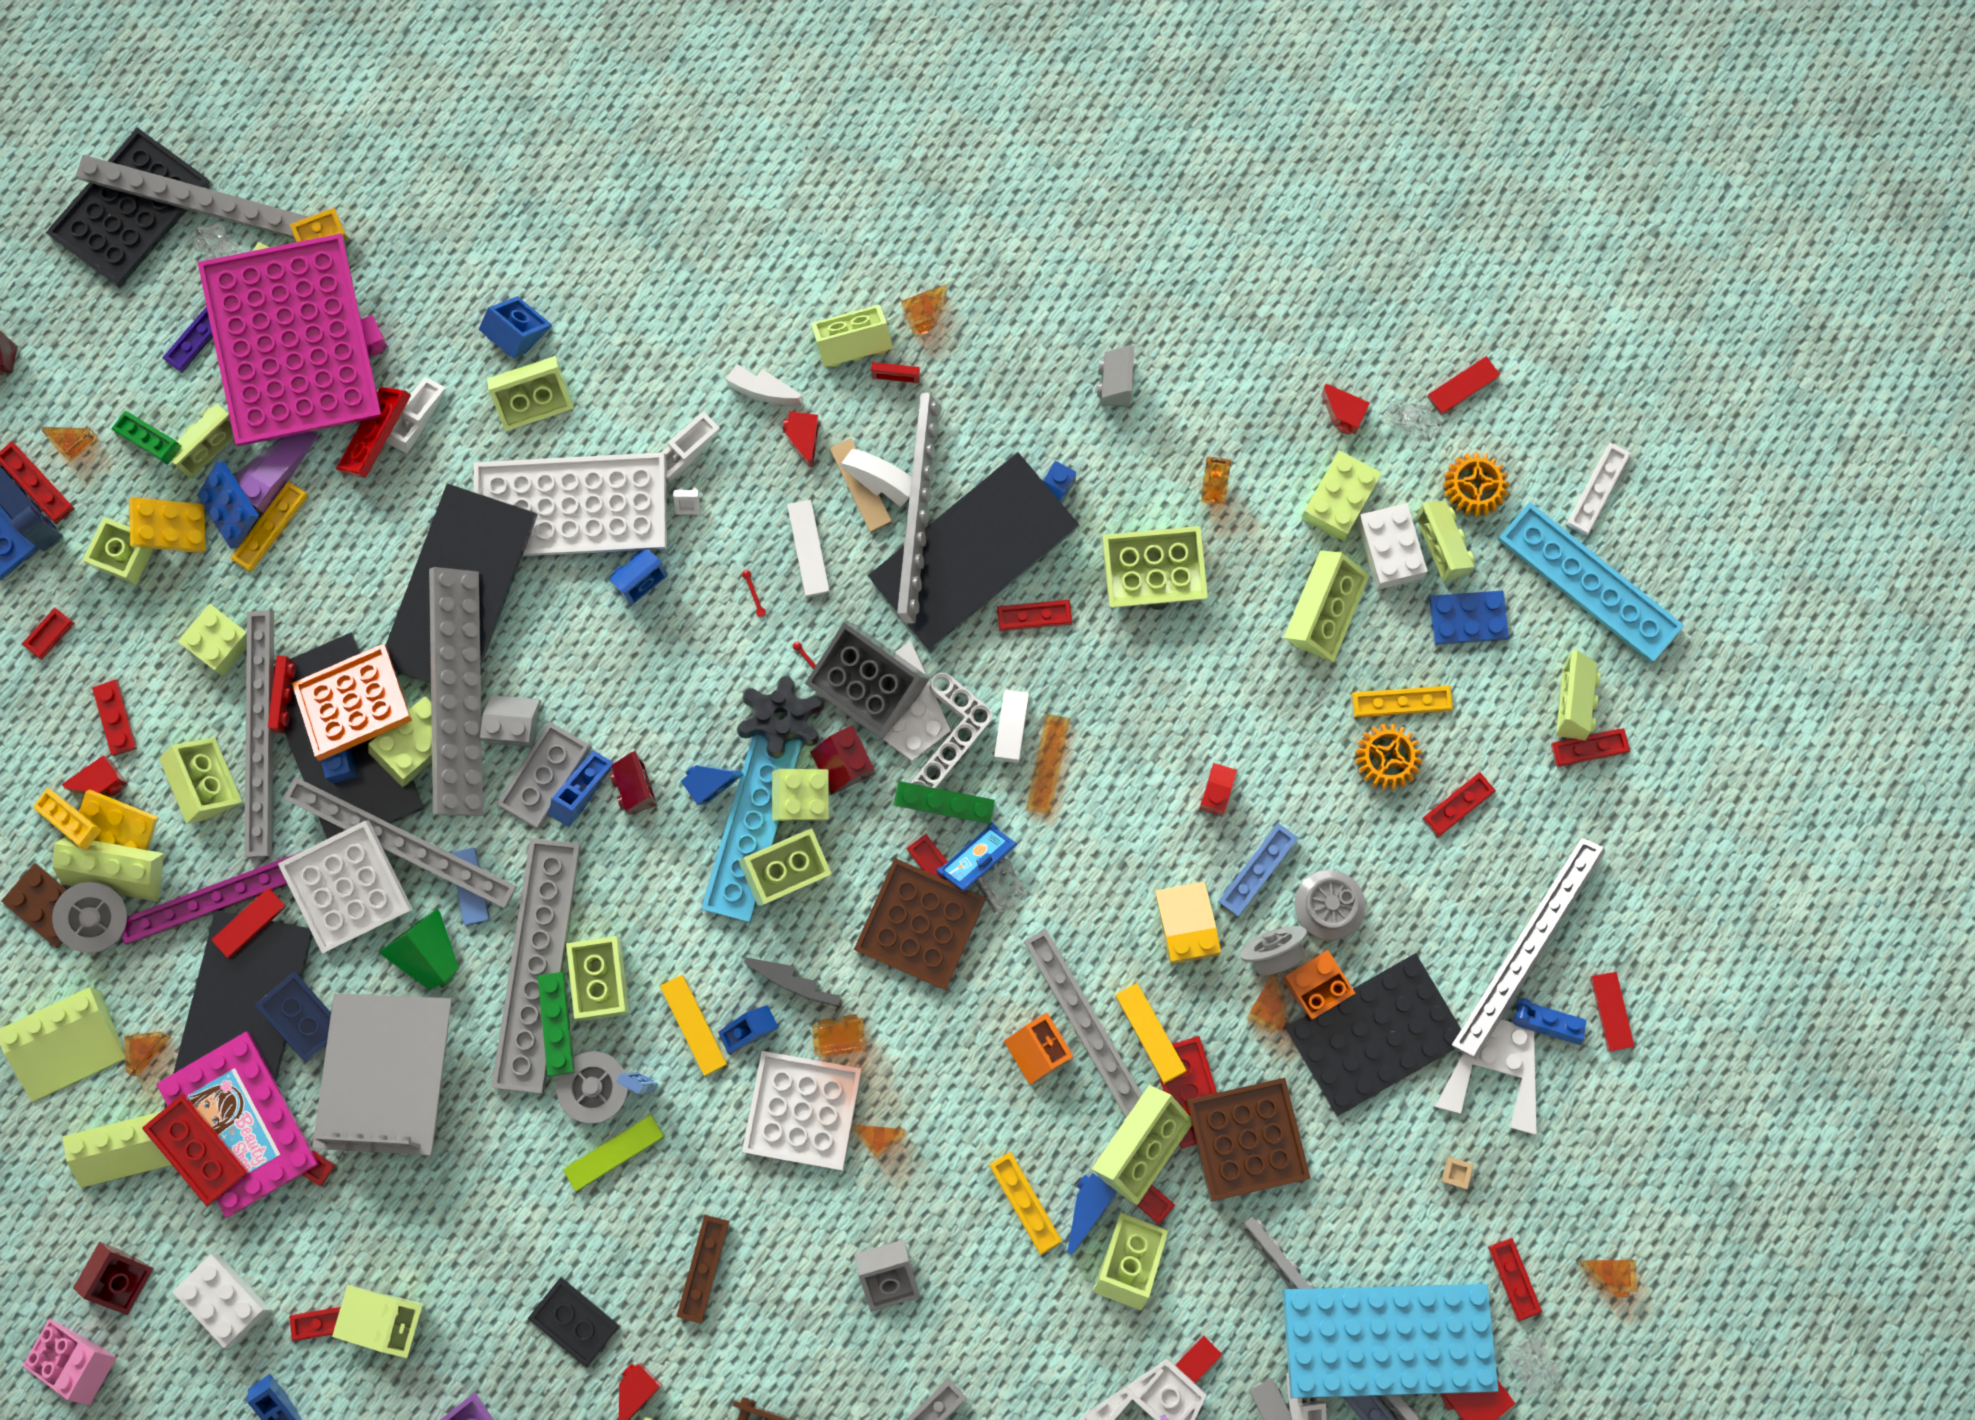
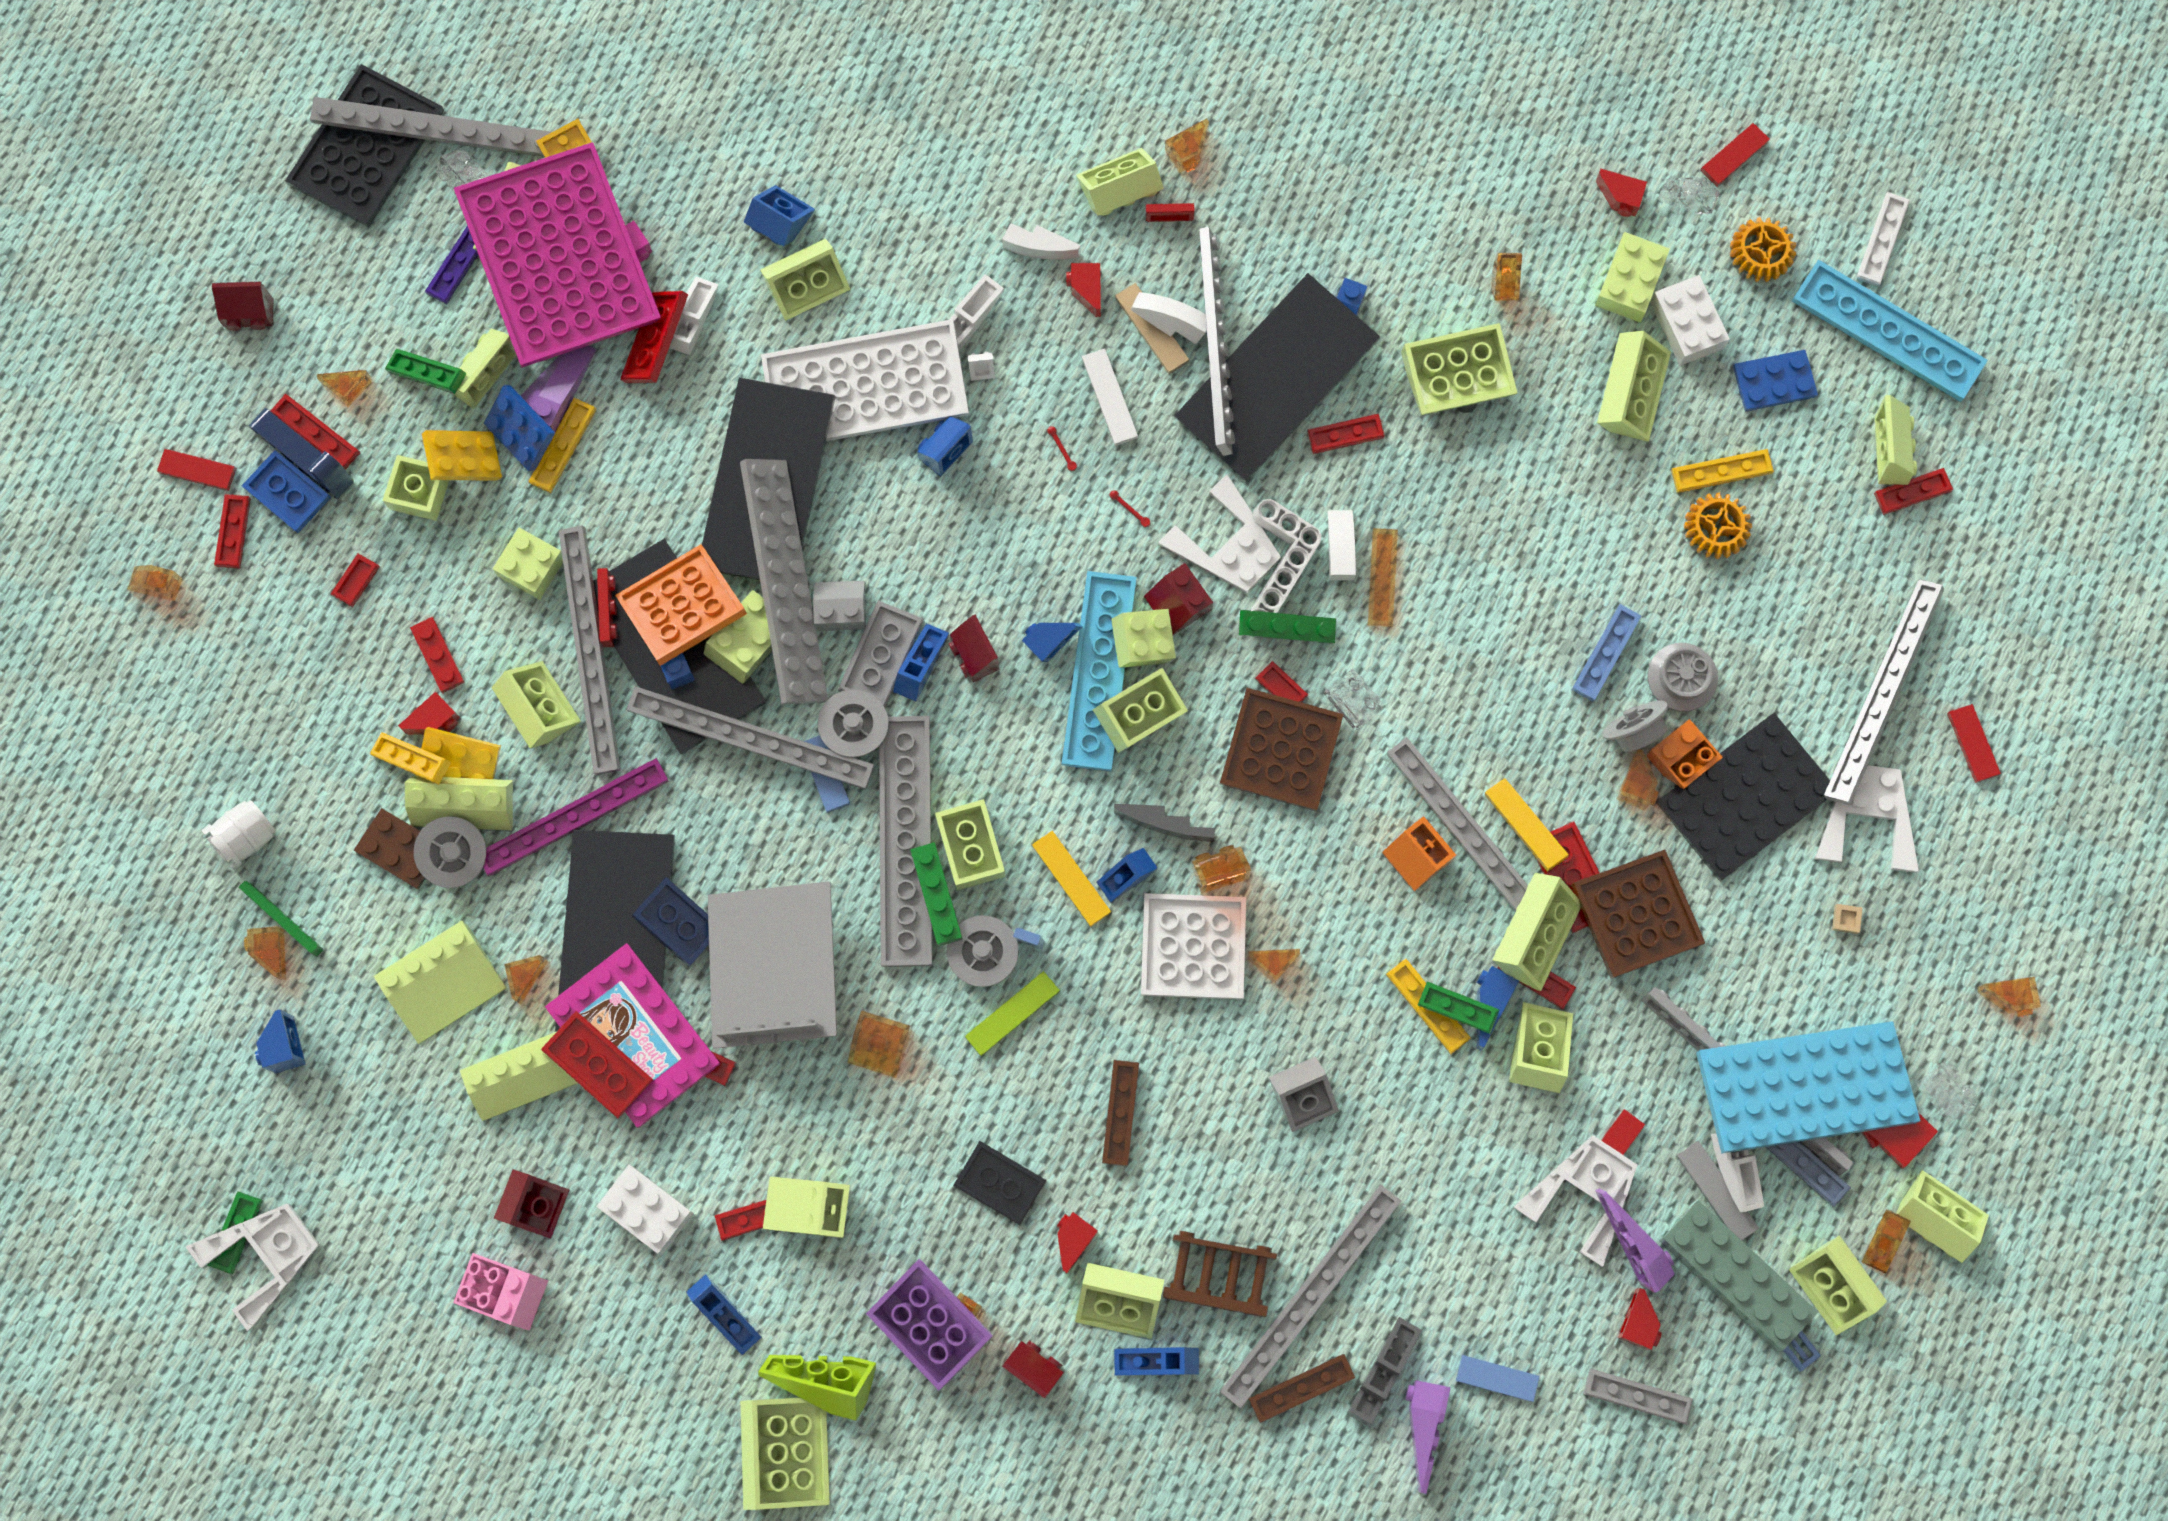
camera: 10 degrees left, 0 degrees up
(248, 923) = (610, 837): red tile -> none
(345, 886) = (702, 787): white plate -> none
(424, 952) = (791, 842): green slope -> none
(477, 1165) = (879, 1044): none -> clear orange slope
(502, 841) = (853, 723): none -> light grey wheel
(780, 731) = (1106, 578): black plate -> none
(866, 679) = (1190, 517): dark grey slope -> none
(981, 852) = (1333, 669): door -> none
(1052, 1210) = (1458, 1007): none -> green tile
(1117, 377) = (1392, 188): light grey slope -> none
(1188, 923) = (1546, 714): yellow slope -> none
(1218, 789) = (1555, 580): red slope -> none
(1445, 540) = (1740, 308): yellowish green slope -> none
(1459, 804) = (1793, 563): red tile -> none
(1514, 1279) = (1918, 1013): red tile -> none
(1549, 1022) = (1914, 761): blue plate -> none

